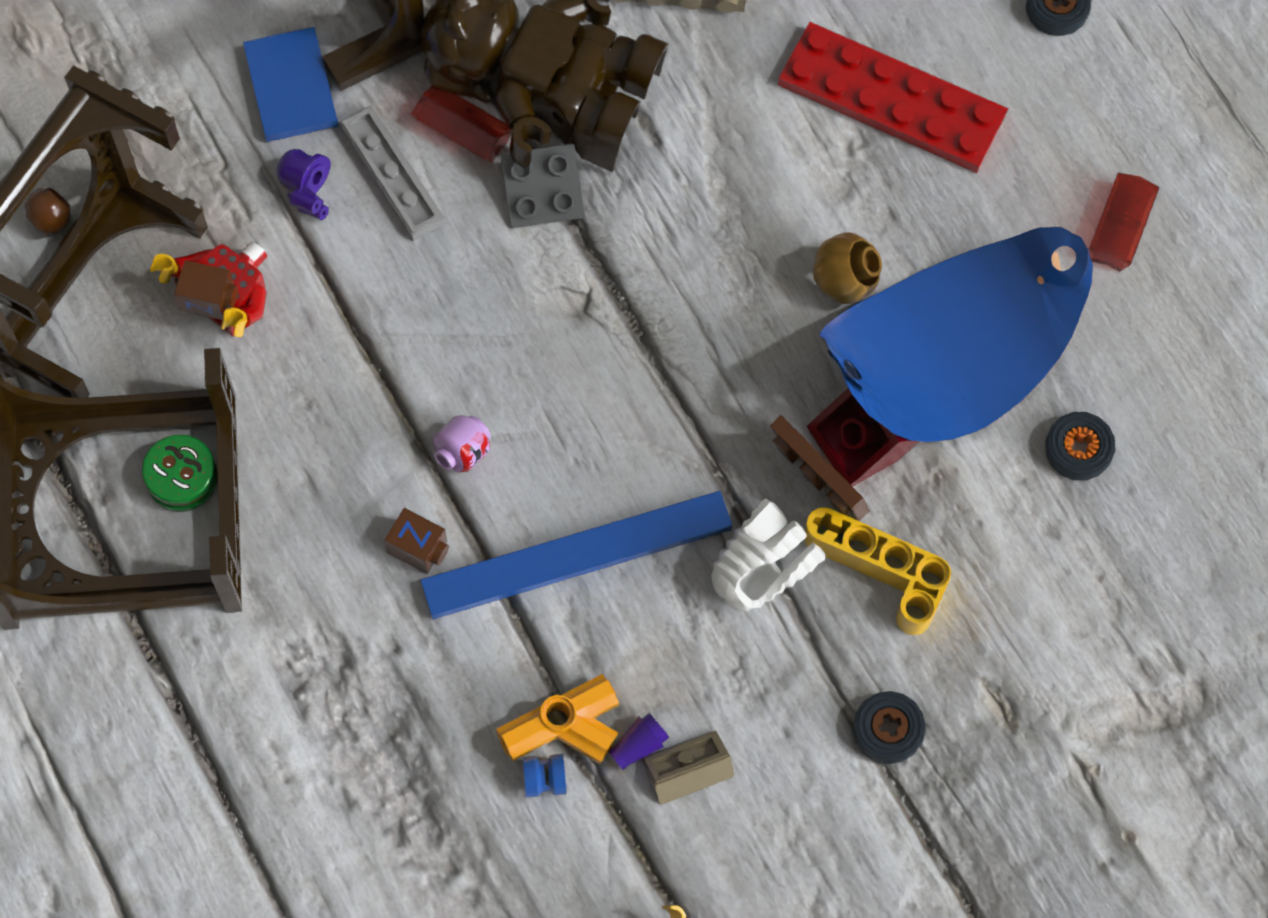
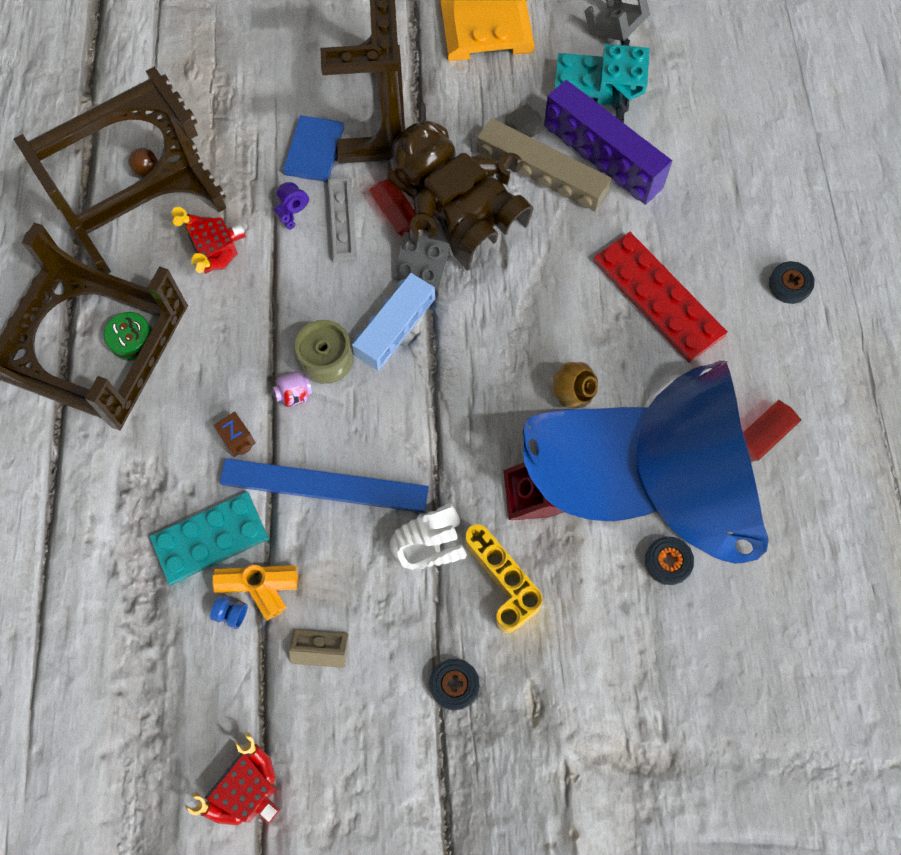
camera: 30 degrees right, 0 degrees up
(205, 290) = (192, 236): reddish brown brick -> none
(458, 695) = (209, 538): none -> teal plate
(480, 371) = (324, 351): none -> olive wheel
(551, 287) = (393, 321): none -> light blue brick
(639, 741) = (298, 617): dark purple cone -> none
(818, 469) = (491, 500): reddish brown plate -> none
(1063, 298) = (700, 465): none -> blue piece

